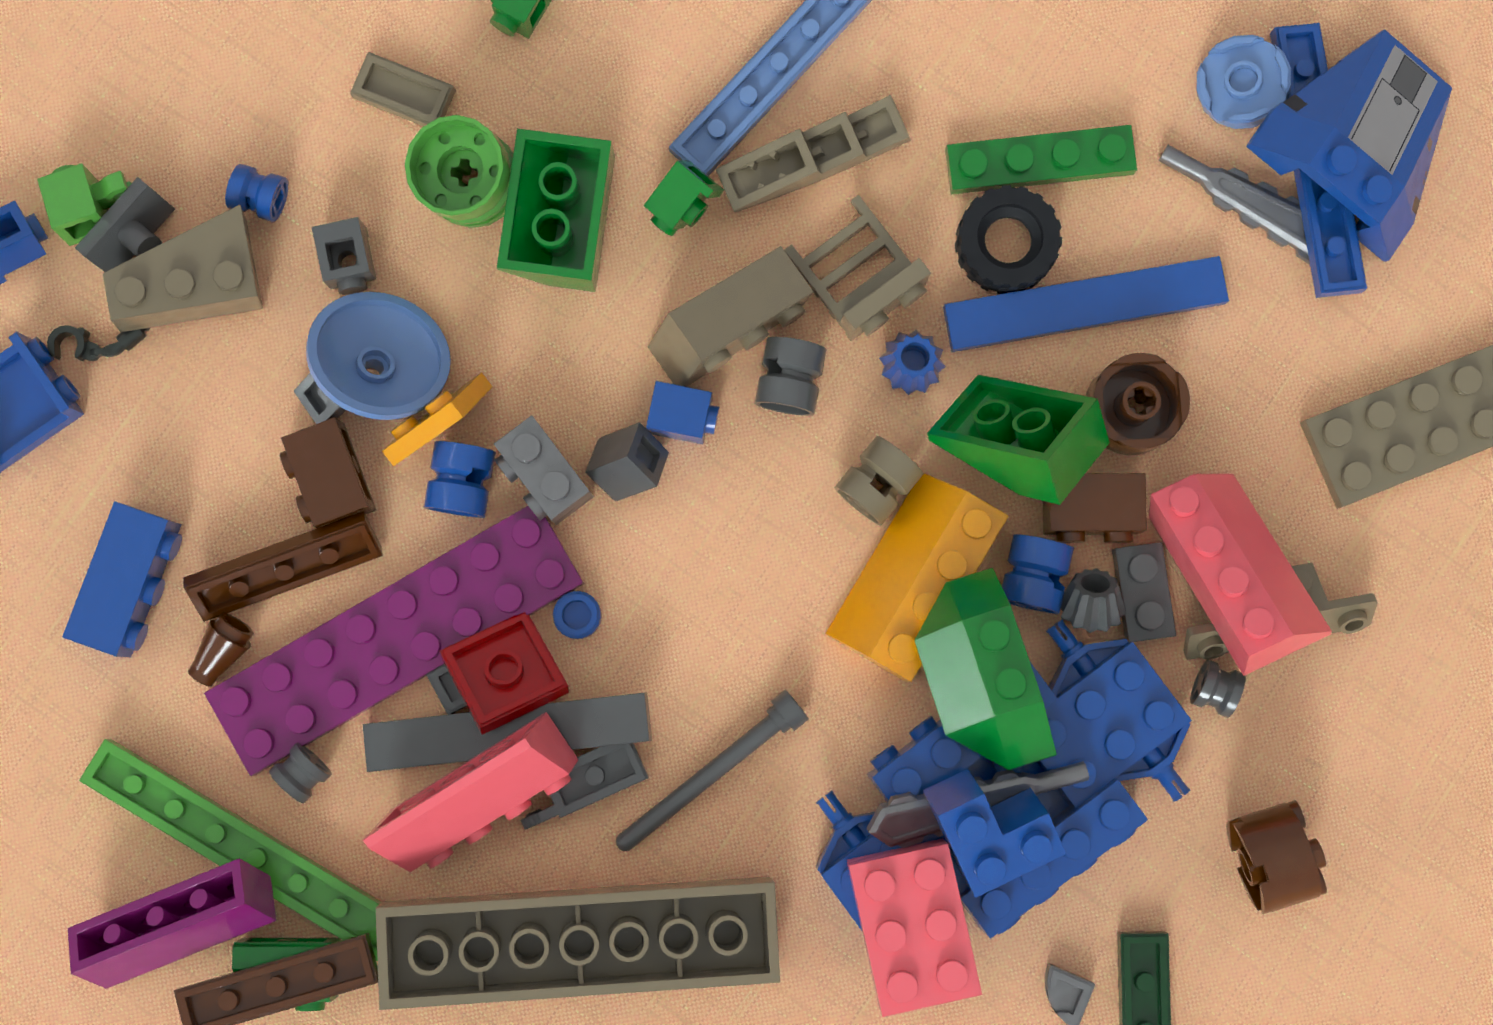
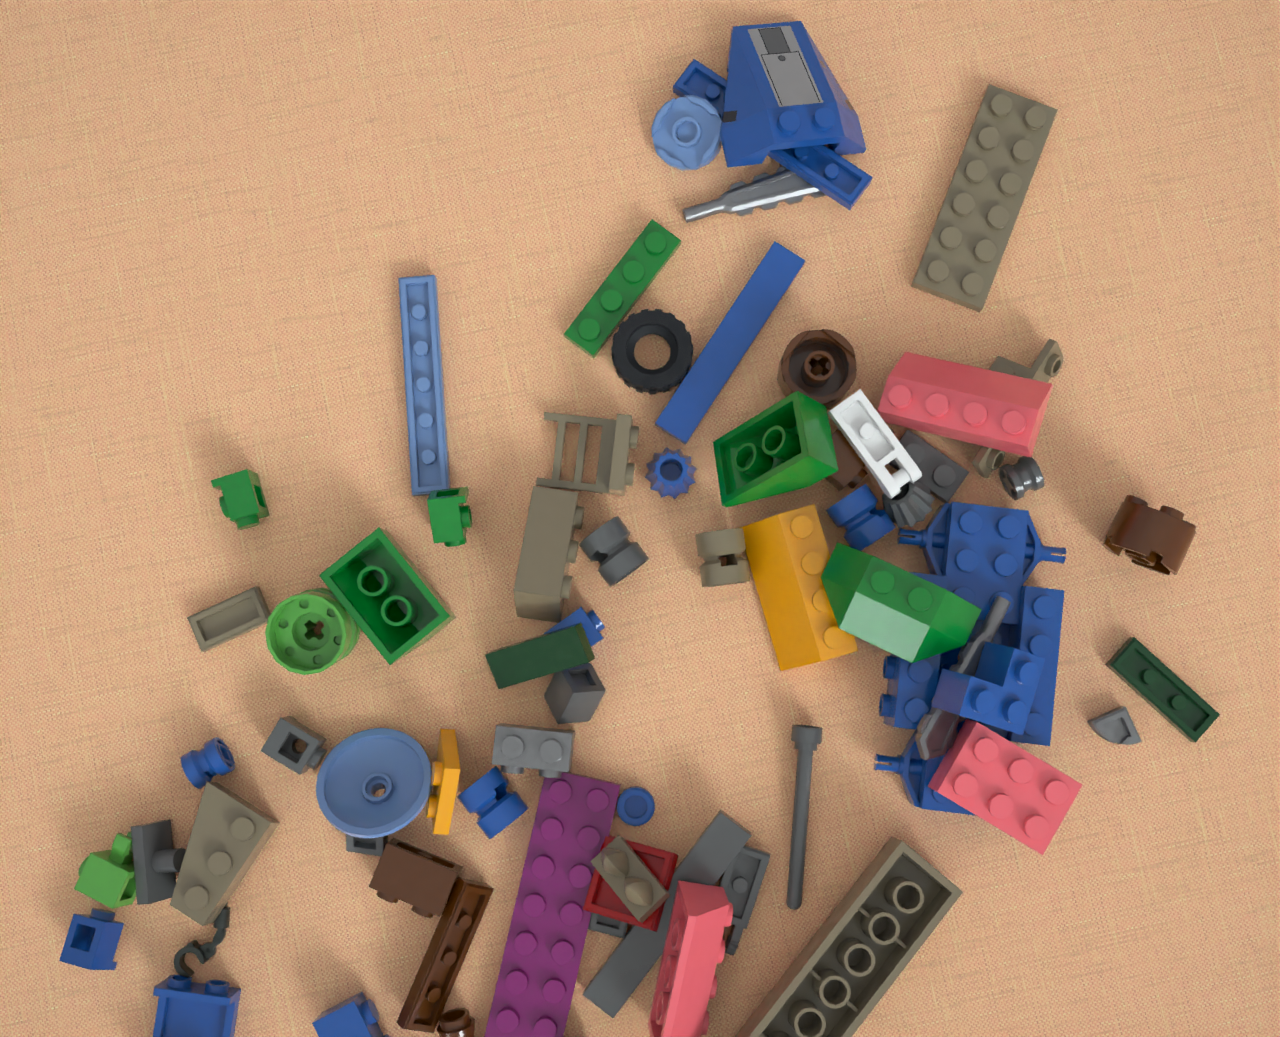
camera: 40 degrees left, 0 degrees up
(507, 666) = (630, 878): none -> dark tan tile
(632, 397) = (540, 656): none -> dark green tile
(813, 154) = (496, 416): dark tan slope -> none
(1118, 517) = (874, 443): none -> white plate

